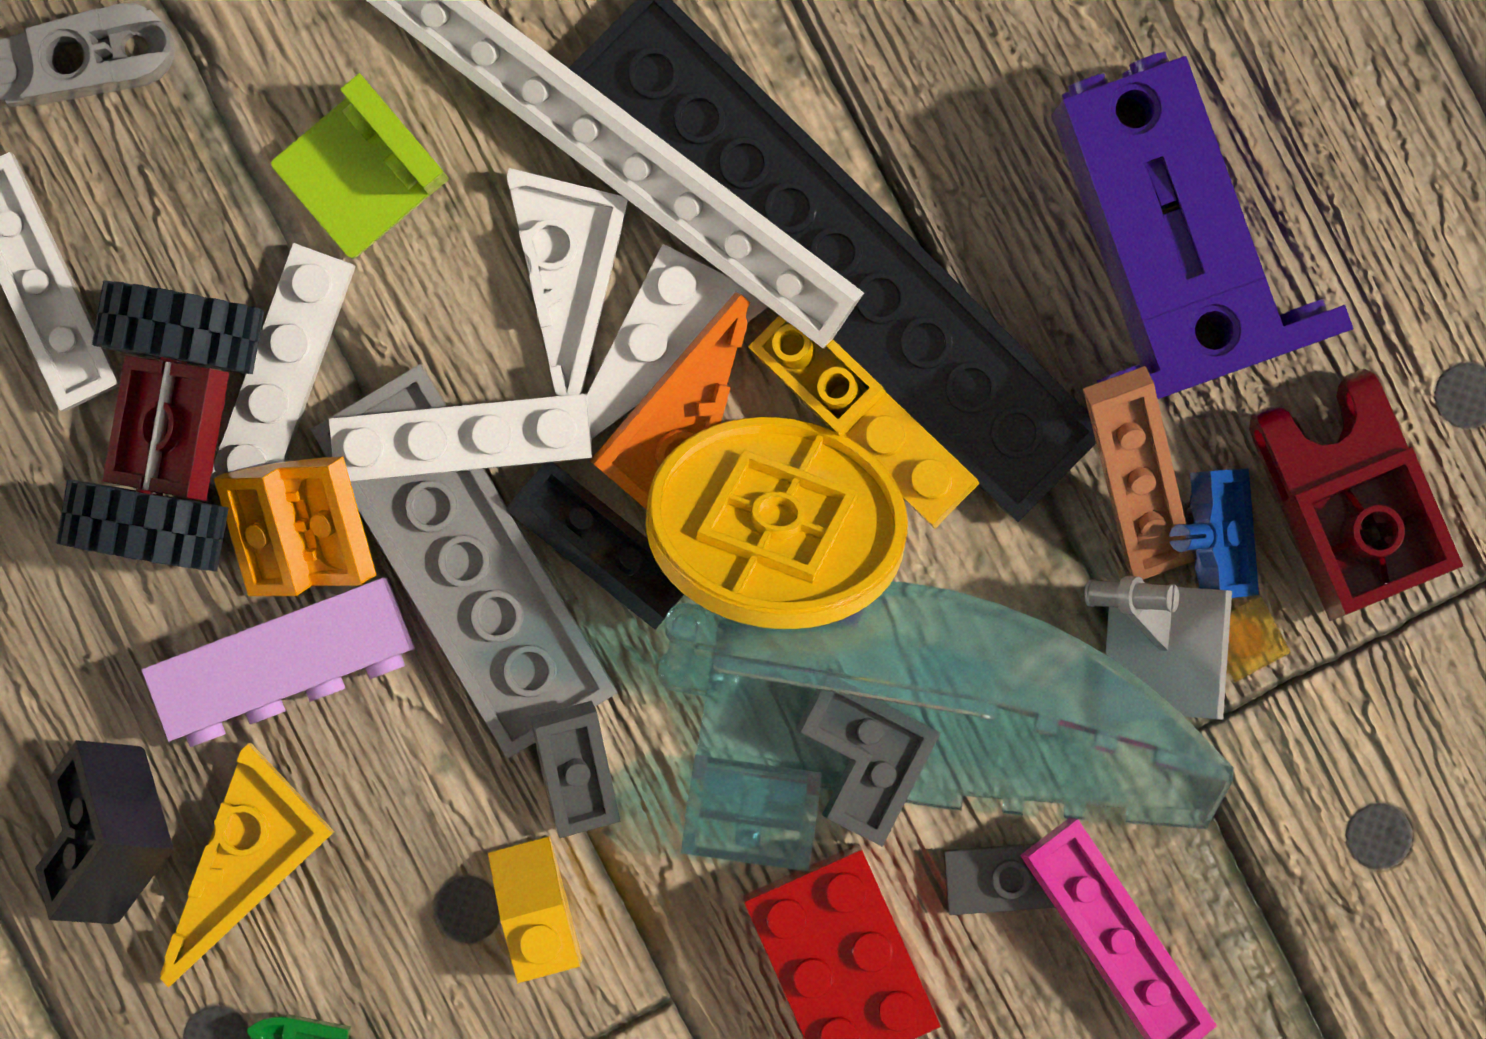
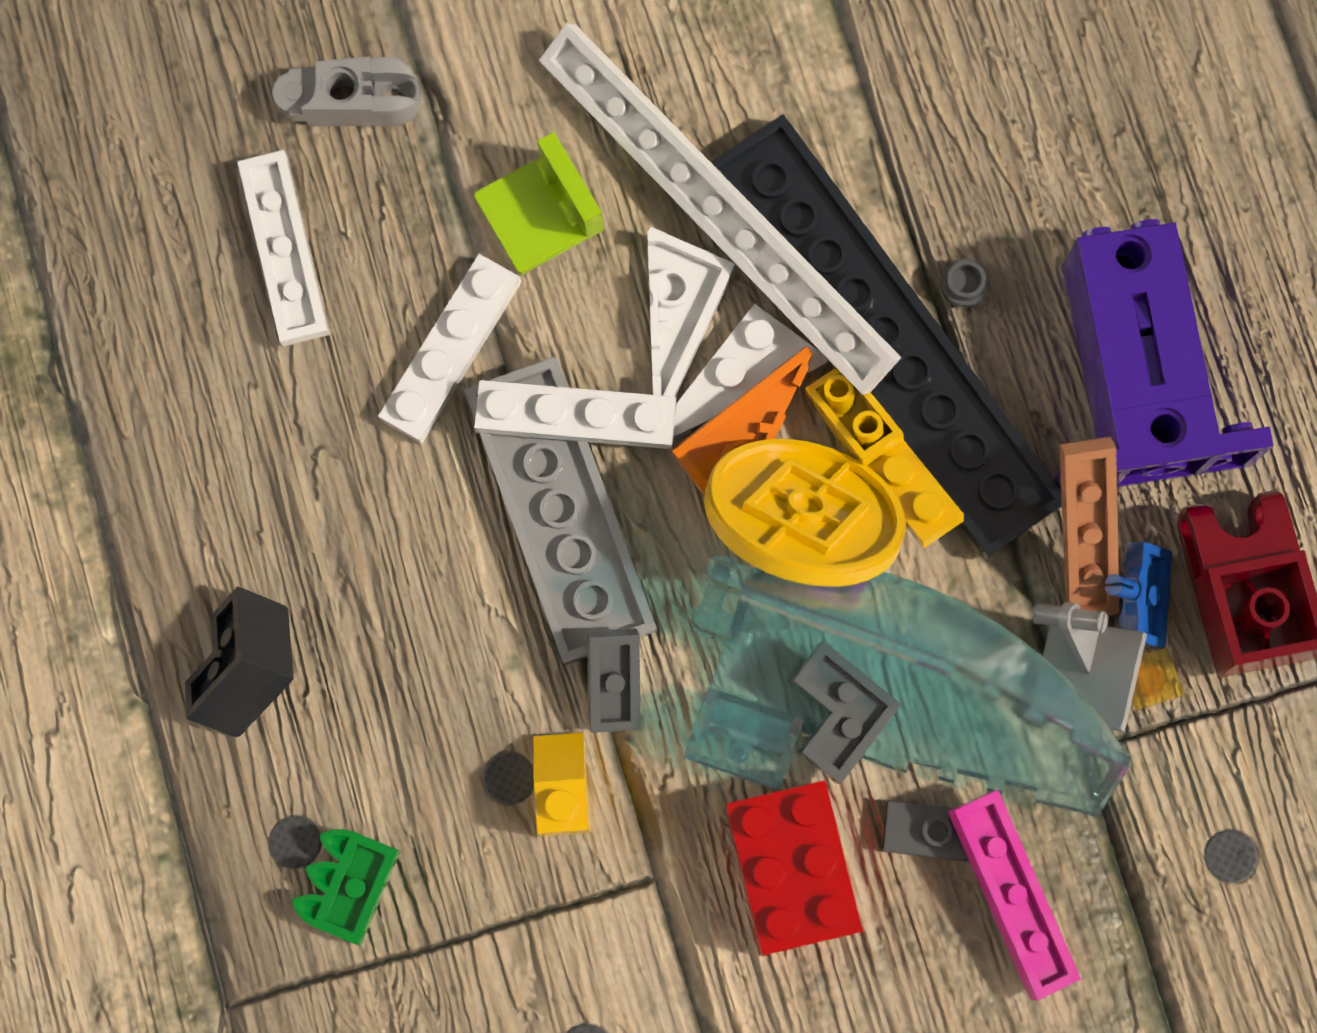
camera: 10 degrees right, 10 degrees down
(162, 426) = (377, 309): black plate -> none
(255, 844) = (357, 694): yellow wing -> none
(279, 659) = (404, 557): lavender brick -> none
(295, 526) = (437, 457): light orange slope -> none
(595, 542) = (664, 513): black plate -> none
(929, 164) = (964, 283): none -> dark grey plate

